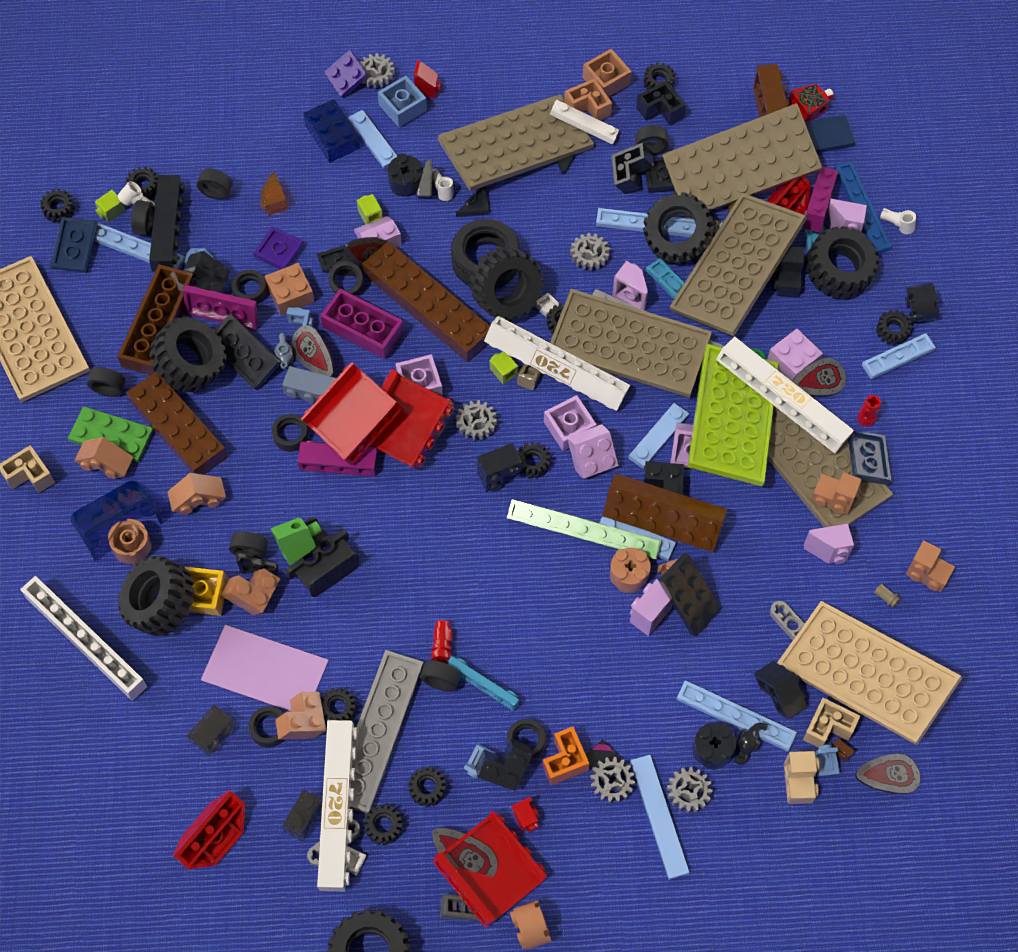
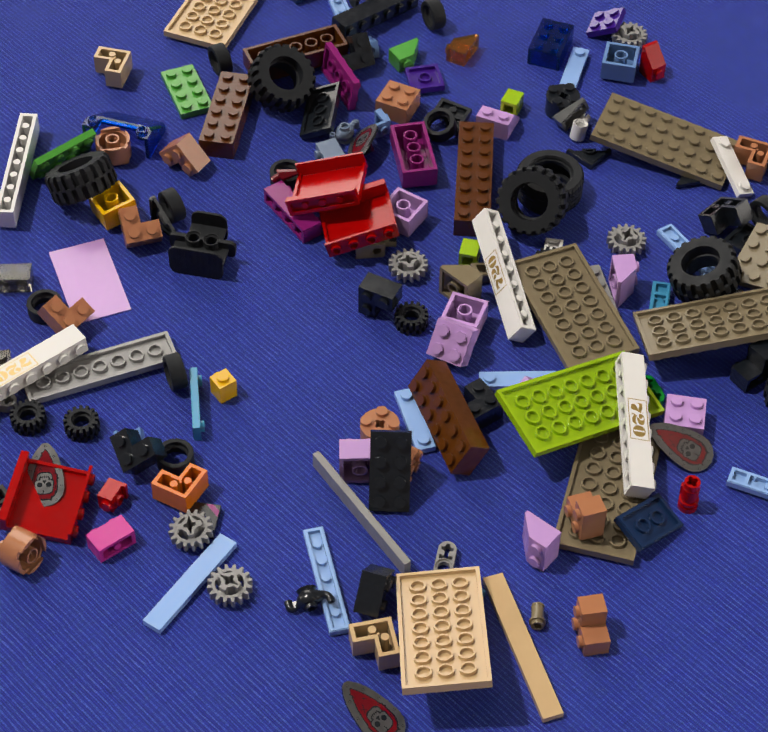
camera: 50 degrees right, 15 degrees down
(102, 589) = (66, 151): none -> bright green plate
(103, 455) = (163, 95): nougat brick -> none
(237, 242) = (404, 54): none -> bright green slope
(250, 275) = (370, 76): black tyre -> none
(295, 538) = (194, 215): bright green torso -> none
(298, 435) = (284, 174): none -> dark red bar
(340, 695) = (94, 326): black tyre -> none
(362, 248) = (466, 108): shield -> none
(442, 638) = (206, 358): red axle -> none
(483, 649) = (223, 385): none -> yellow brick
(537, 399) = (460, 279): none -> dark tan slope
(569, 846) = (110, 538): none -> dark pink brick
(582, 528) = (385, 381): tile -> none
(696, 643) = (361, 513): none -> light grey tile
(715, 734) = (282, 576): black brick -> none
(799, 777) = (311, 651): tan brick -> none
(827, 761) = (343, 662): medium blue bracket -> none
(845, 751) = (363, 667): reddish brown tile -> none
(905, 626) = (523, 648): none -> tan tile

